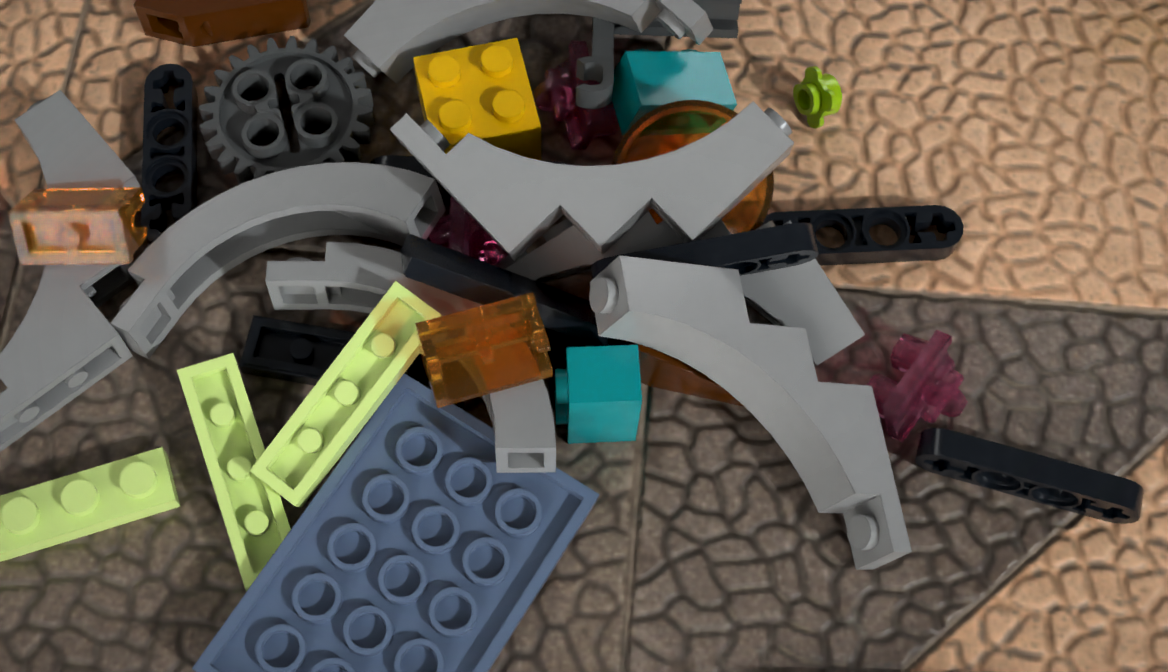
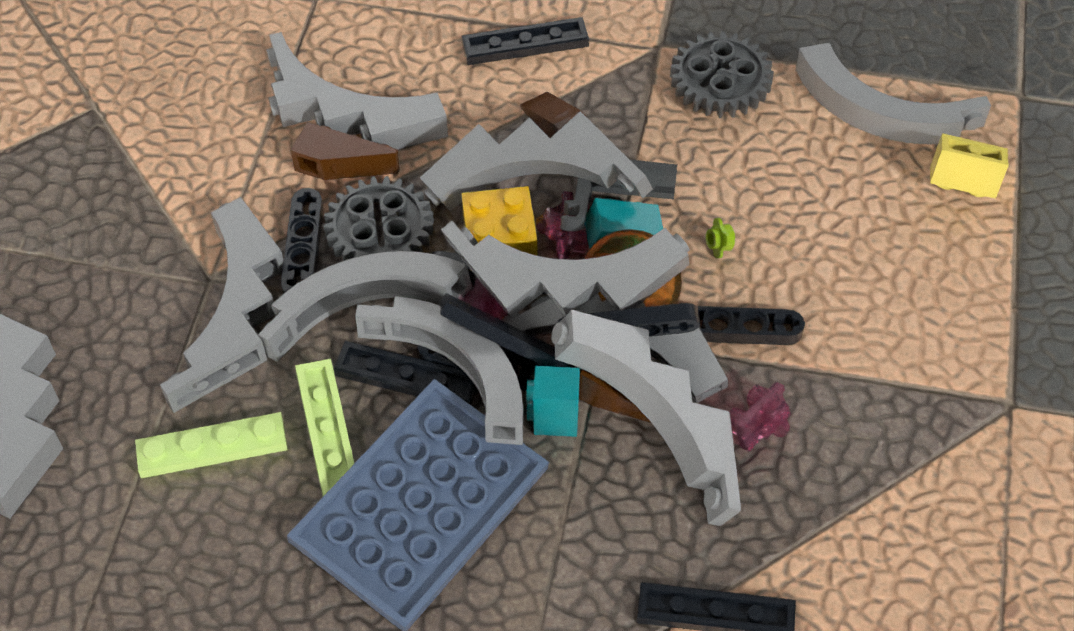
camera: 10 degrees right, 10 degrees down
(77, 226) = (244, 276): clear orange hinge -> none
(344, 397) = (398, 385): yellowish green plate -> none
(484, 349) = (484, 362): clear orange hinge -> none
(1029, 475) = (827, 476): black beam -> none

